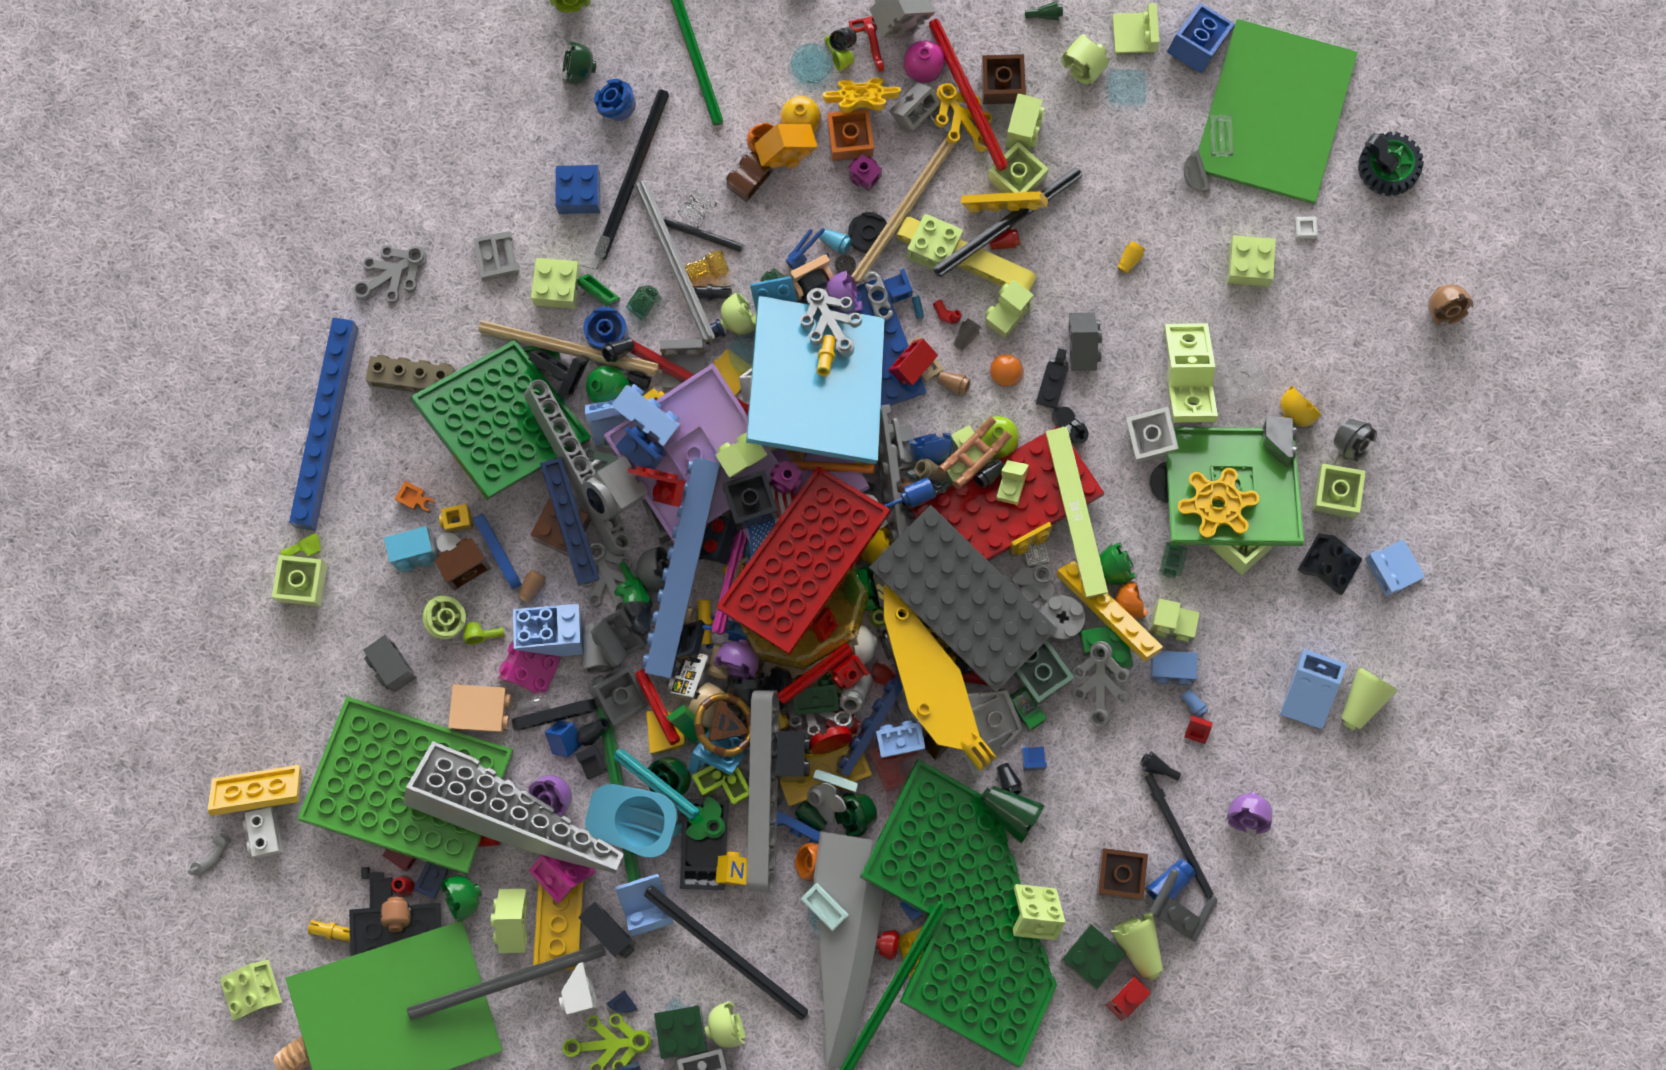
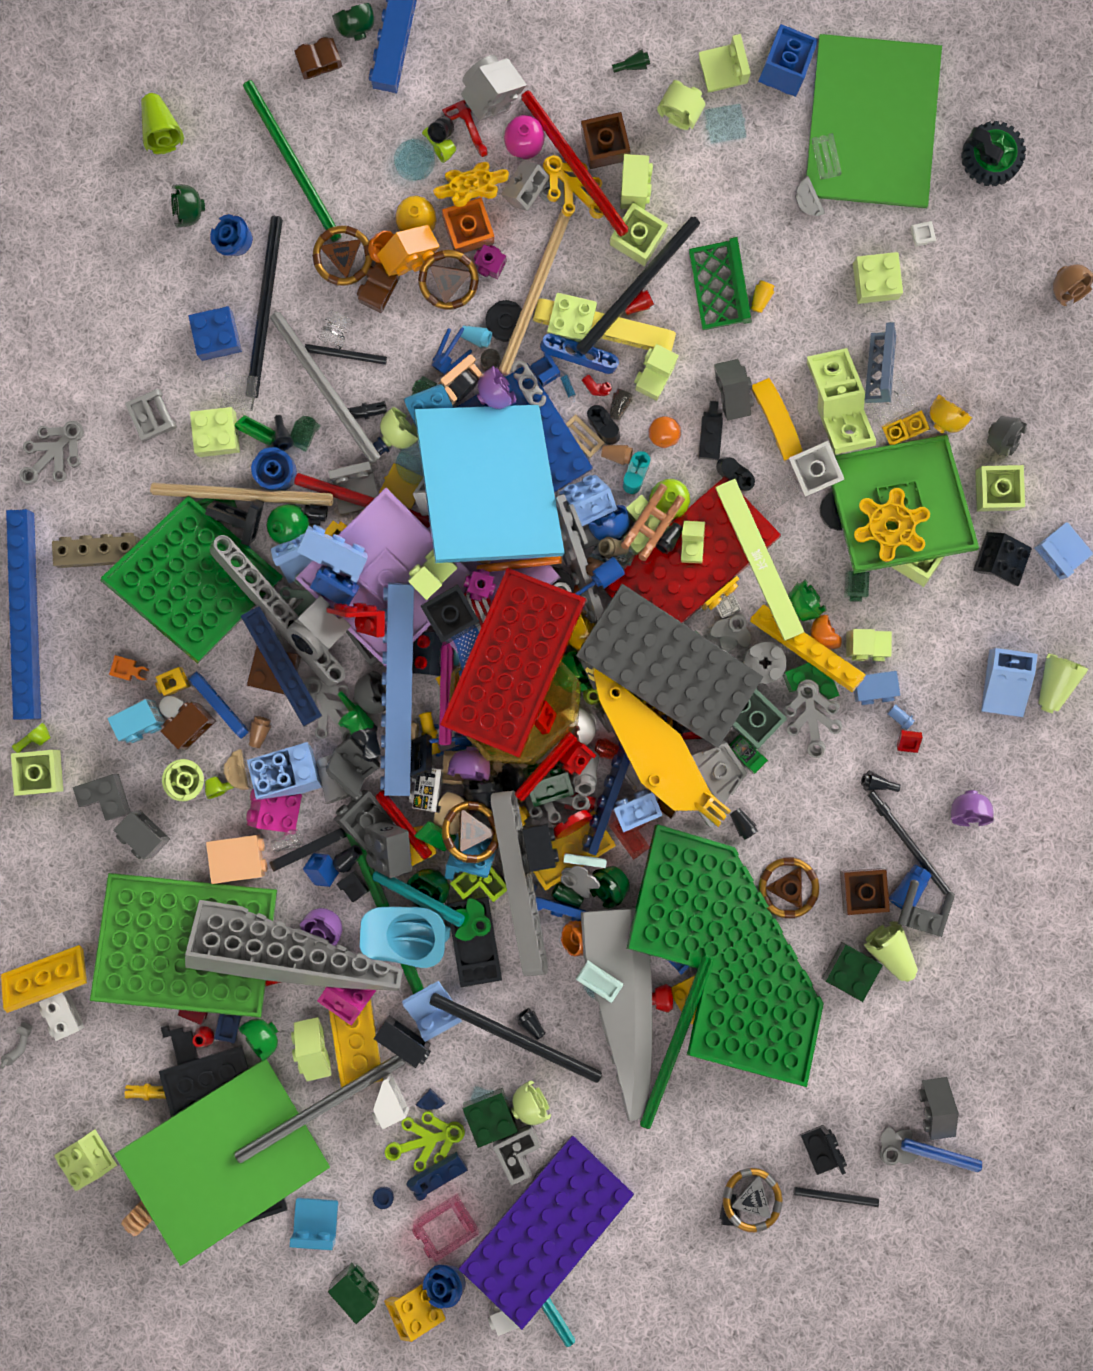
camera: 15 degrees left, 10 degrees up
(364, 614) = (107, 792): none -> dark grey brick
(395, 914) = (203, 1068): nougat head -> none
(499, 619) = (235, 771): none -> tan tile
(617, 349) = (289, 488): black cone -> none
(621, 300) = (281, 436): none -> black cone
(636, 727) = (388, 849): none -> dark grey brick
(711, 265) = (360, 385): clear yellow piece -> none
(719, 138) = (341, 255): none -> piece
(731, 869) = (505, 961): yellow brick -> none
(744, 942) = (529, 1022): none -> black cone
(819, 181) = (448, 279): none -> piece
(826, 355) = (493, 457): yellow pin -> none
(830, 317) = (488, 417): light grey plant -> none
(913, 362) = (575, 443): red hinge -> none
(917, 420) = (590, 498): none -> light blue bracket
(934, 281) = (578, 358): none -> blue beam
(945, 348) = (597, 417): none -> black piece
(964, 412) = (639, 463): none -> teal piece
(1008, 201) = (637, 264): yellow plate -> none
(1012, 811) = (754, 854): dark green cone -> none
(1033, 758) = (762, 799): blue panel -> none
(1039, 912) = (795, 940): yellowish green bracket -> none
(1045, 857) = (789, 887): none -> reddish brown piece
(1109, 240) = (738, 280): none -> green fence
(1123, 378) = (777, 418): none -> yellow slope
(1128, 998) = (892, 1001): red torso -> none
(1241, 348) = (886, 367): none -> sand blue fence
(1252, 414) = (906, 428): none -> yellow slope
(1278, 438) = (935, 449): flat silver slope -> none

